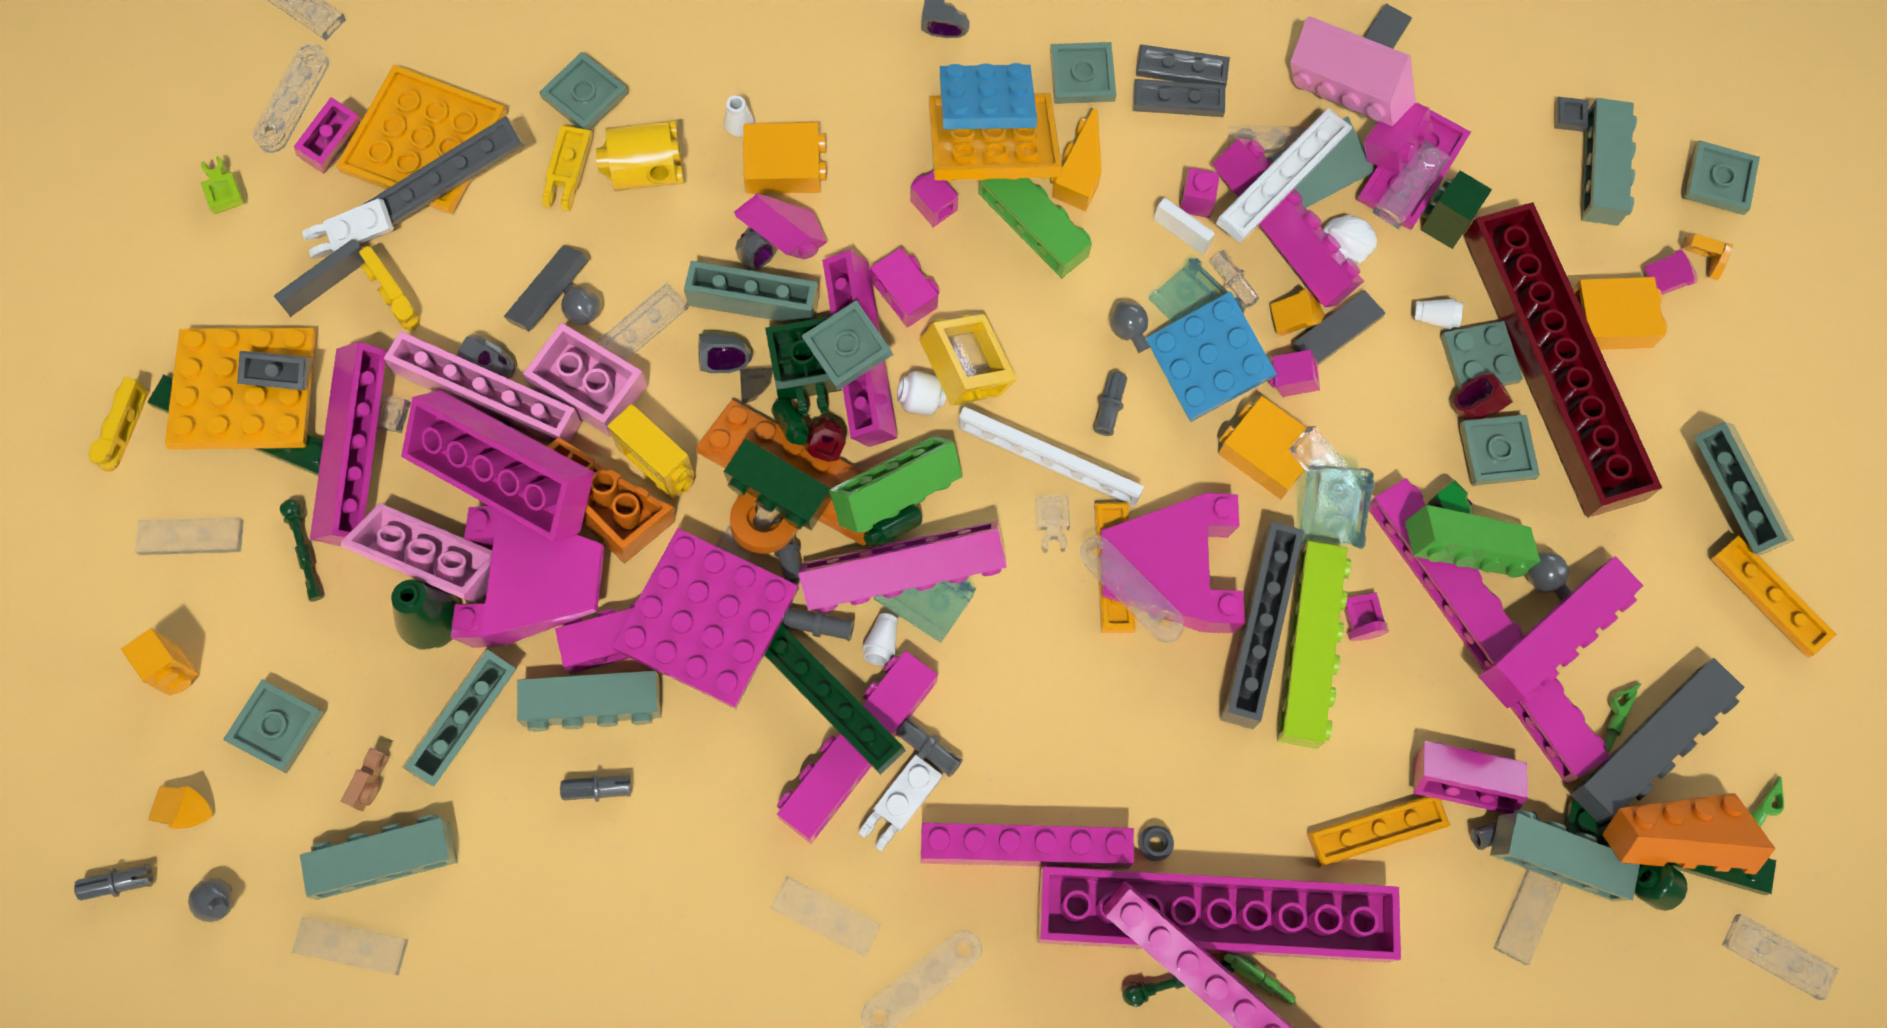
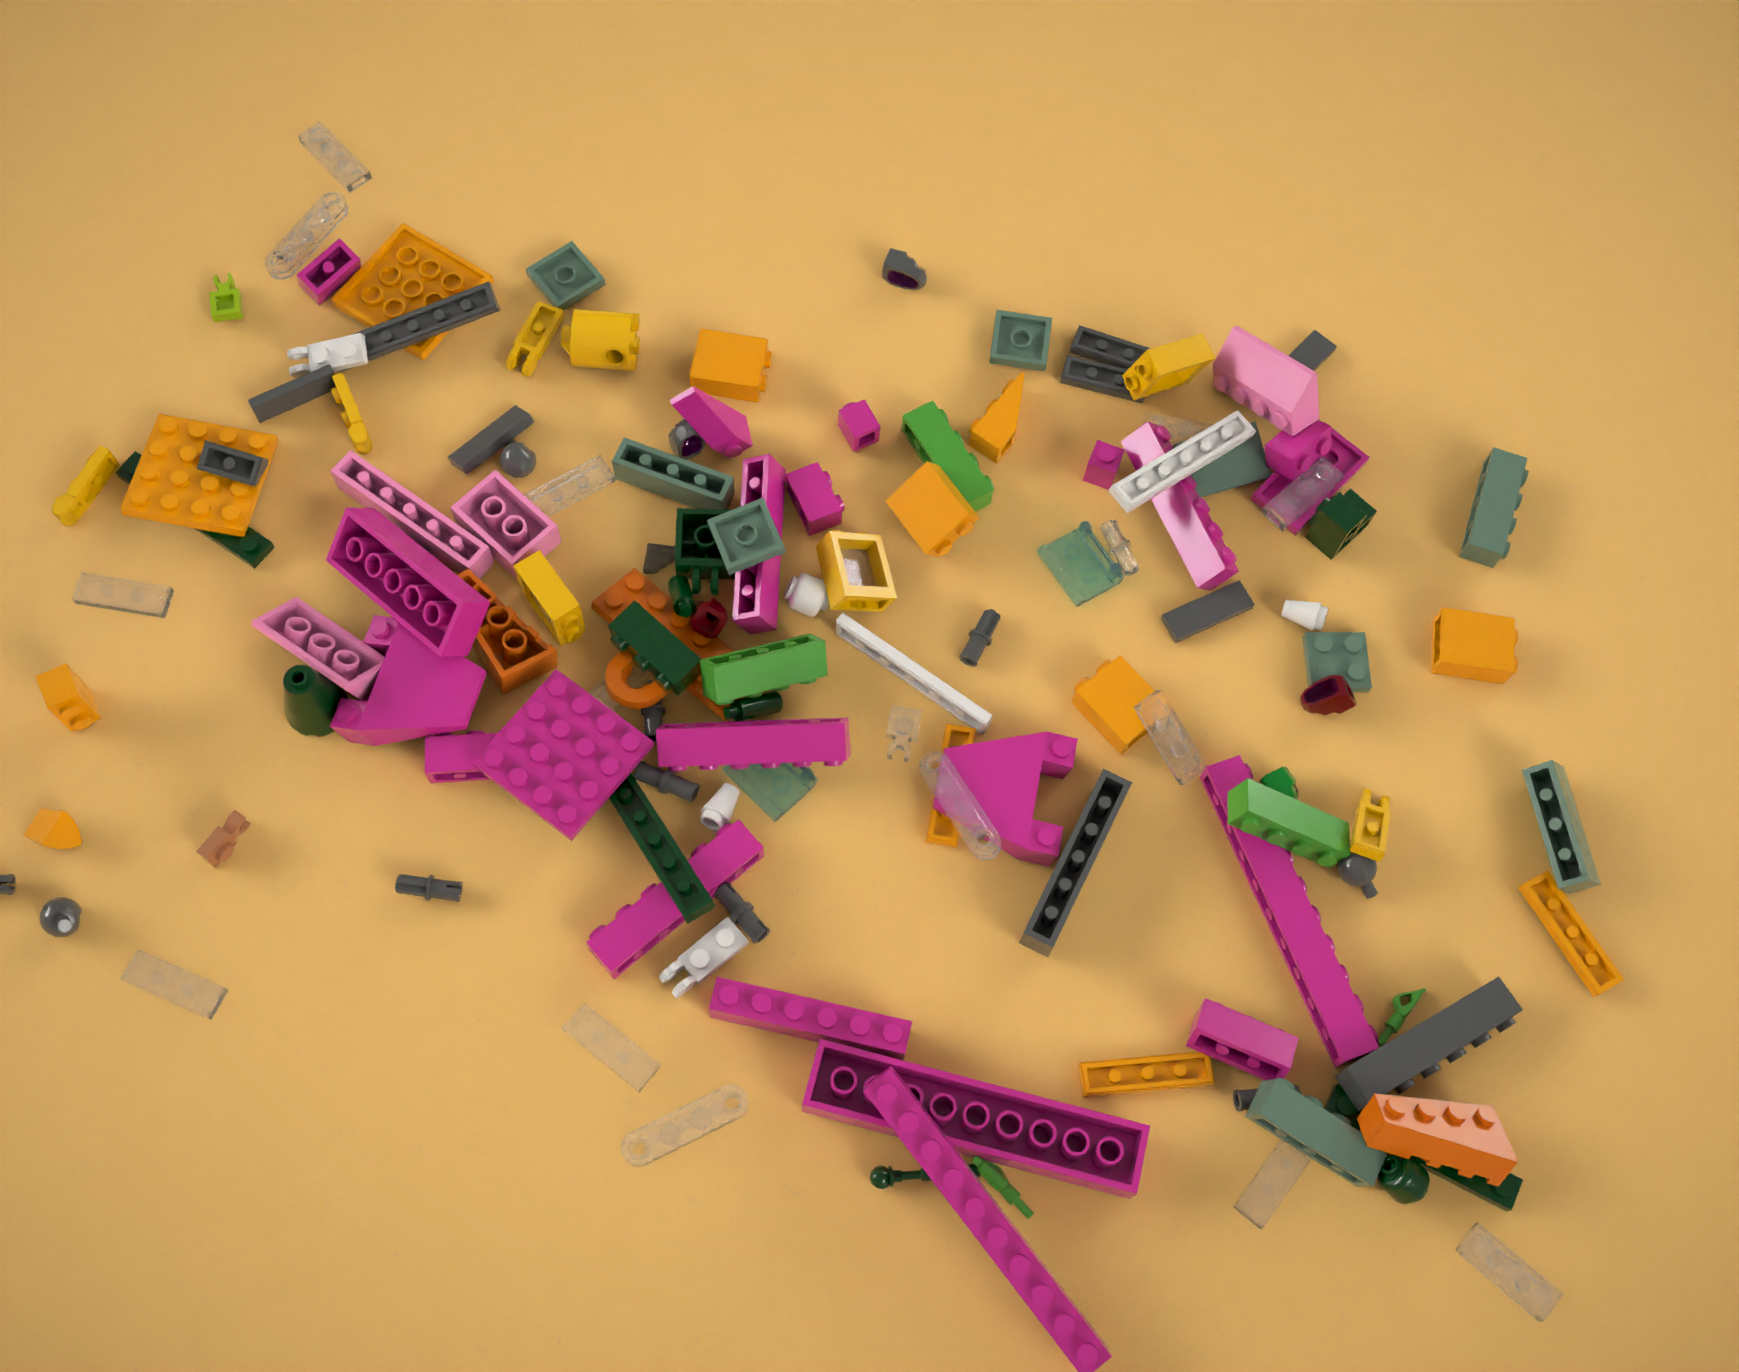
camera: 10 degrees right, 5 degrees down
(273, 726) = (155, 775): sand green plate -> none
(293, 514) = (218, 594): dark green piece -> none
(348, 442) = (282, 538): dark pink brick -> none
(377, 858) = (218, 909): sand green brick -> none
(392, 413) = (320, 521): clear plate -> none
(459, 718) = (320, 799): sand green brick -> none
(486, 355) = (424, 487): dark grey rock -> none
(589, 699) = (441, 808): sand green brick -> none
(722, 353) = (635, 525): rock -> none
(736, 115) = (697, 318): white cone -> none
(987, 96) = (927, 344): dark azure plate -> none
(996, 152) = (924, 380): light orange plate -> none
(1033, 276) = (932, 510): none -> light orange brick
(1129, 323) = (1013, 568): dark grey piece -> none
(1165, 838) = (935, 1033): dark grey plate -> none
(1184, 226) = (1083, 492): white tile -> none
(1211, 356) = (1081, 612): dark azure plate -> none
(1246, 73) = (1168, 366): none -> yellow window
(1296, 313) = (1171, 588): light orange tile -> none
(1296, 373) = (1157, 642): dark pink brick -> none
(1313, 645) = (1120, 891): lime brick -> none
(1336, 505) = (1168, 767): clear light blue piece -> none
(1354, 236) = (1238, 530): white hair -> none
(1365, 617) = (1175, 876): dark pink tile -> none
(1499, 450) = (1335, 748): sand green plate -> none
(1554, 526) = (1371, 827): none -> yellow hinge
(1561, 632) = (1355, 923): dark pink brick -> none
(1562, 360) = (1411, 679): dark red brick -> none
(1571, 114) = (1469, 459): dark grey tile -> none
(1672, 272) = (1534, 618): dark pink tile -> none
(1711, 248) = (1574, 602): light orange tile -> none
(1722, 177) = (1600, 541): sand green plate -> none
(1765, 806) = (1522, 1129): bright green hand -> none

